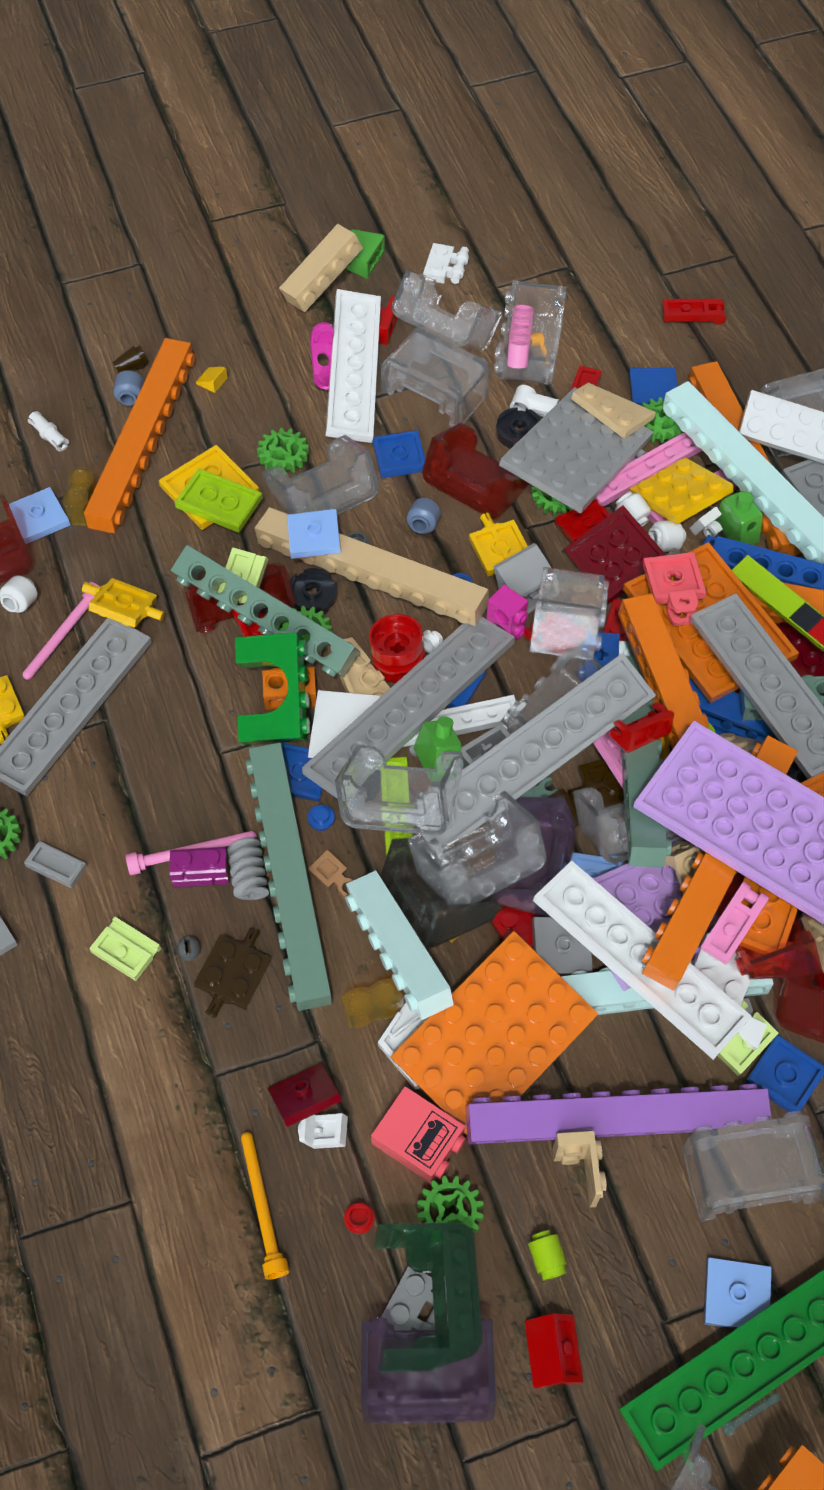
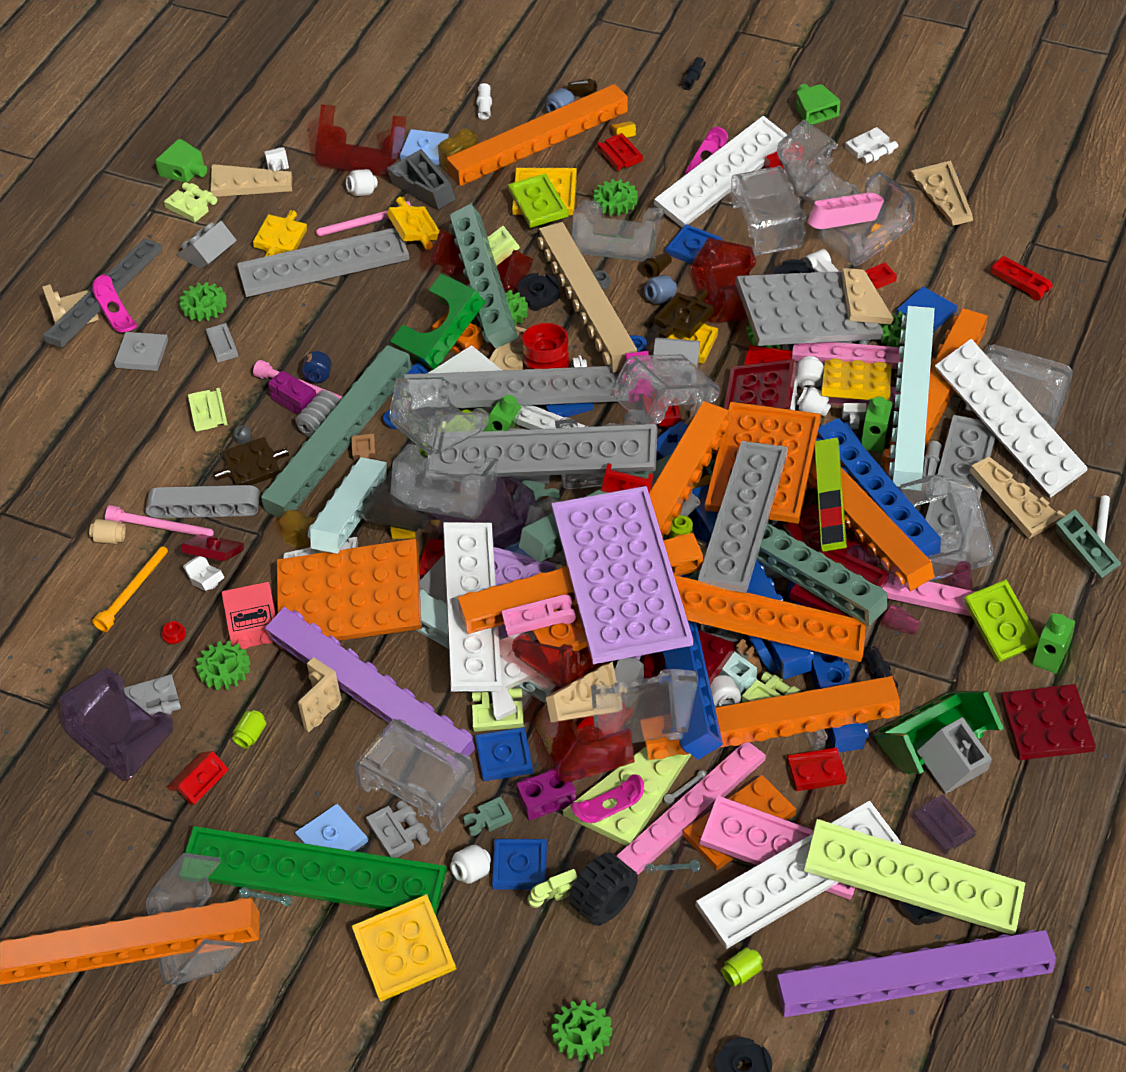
camera: 45 degrees right, 10 degrees down
(82, 551) = (422, 179): none -> dark grey wedge
(158, 1139) = (116, 514): none -> bright pink piece
(169, 1165) = (107, 531): none -> tan brick
(189, 819) = (318, 365): none -> dark blue head
(217, 285) = (693, 73): none -> black pin
(232, 1053) = (202, 501): none -> light grey beam
(236, 403) = (620, 152): none -> red plate
(313, 533) = (568, 251): light blue plate -> none
(321, 267) = (767, 96): tan brick -> none
(391, 494) = (656, 265): none -> dark brown cone
(450, 1256) = (186, 673): clear green windscreen -> none
(479, 527) = (684, 315): none -> dark brown plate
(549, 267) = (945, 191): none -> tan wing
(679, 595) = (751, 427): coral plate -> none
(786, 1243) = (390, 832): none -> light grey plate

